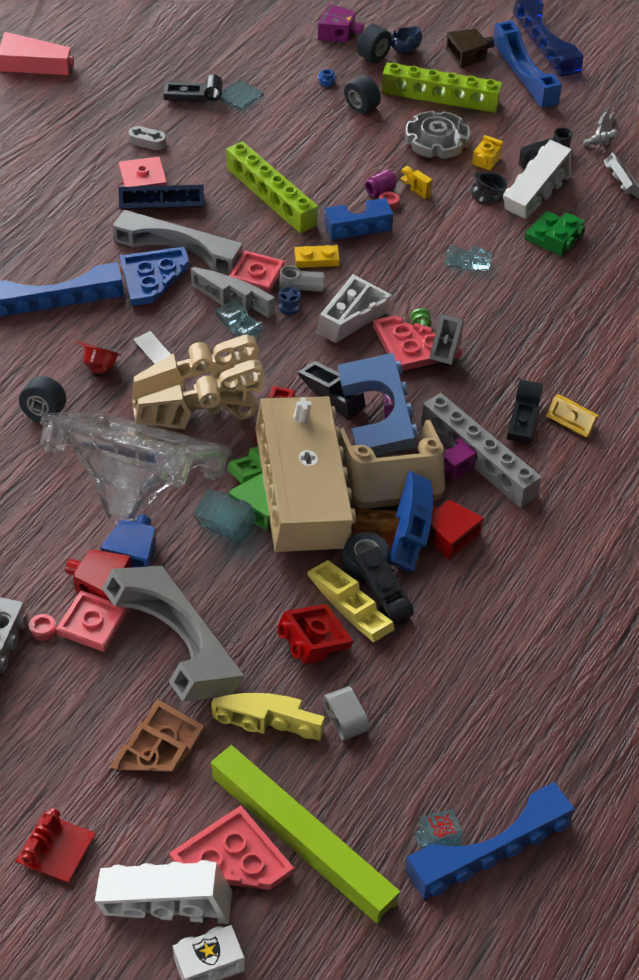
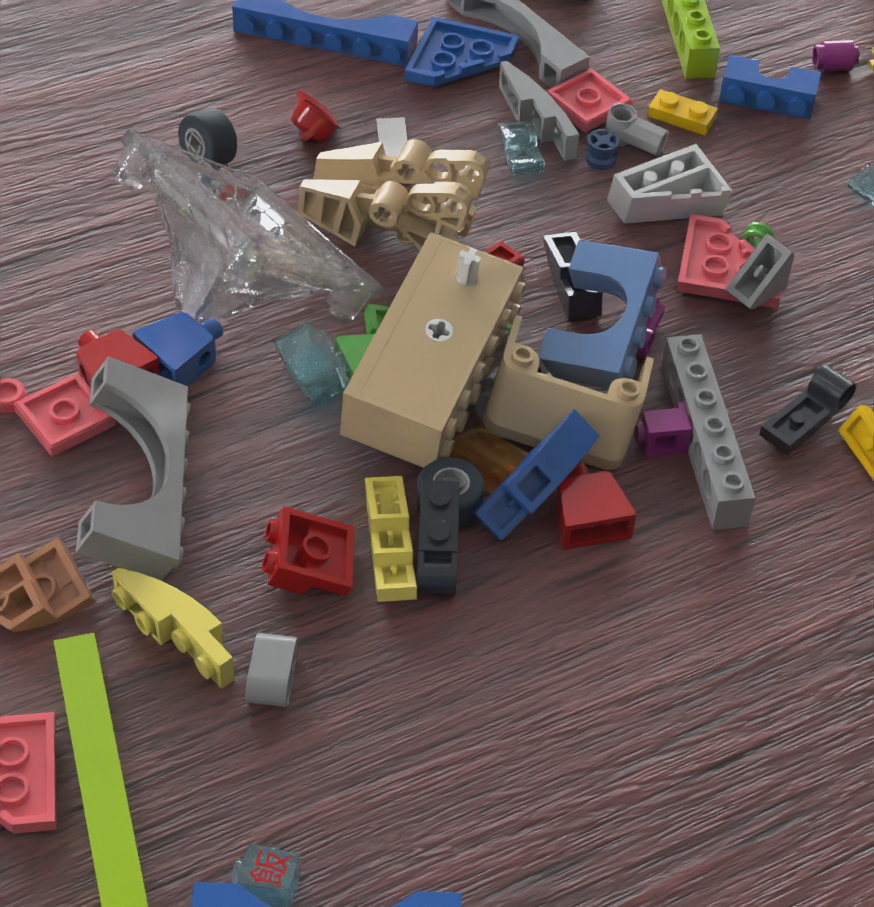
camera: 30 degrees right, 0 degrees up
(392, 198) = (833, 82): coral tile -> none

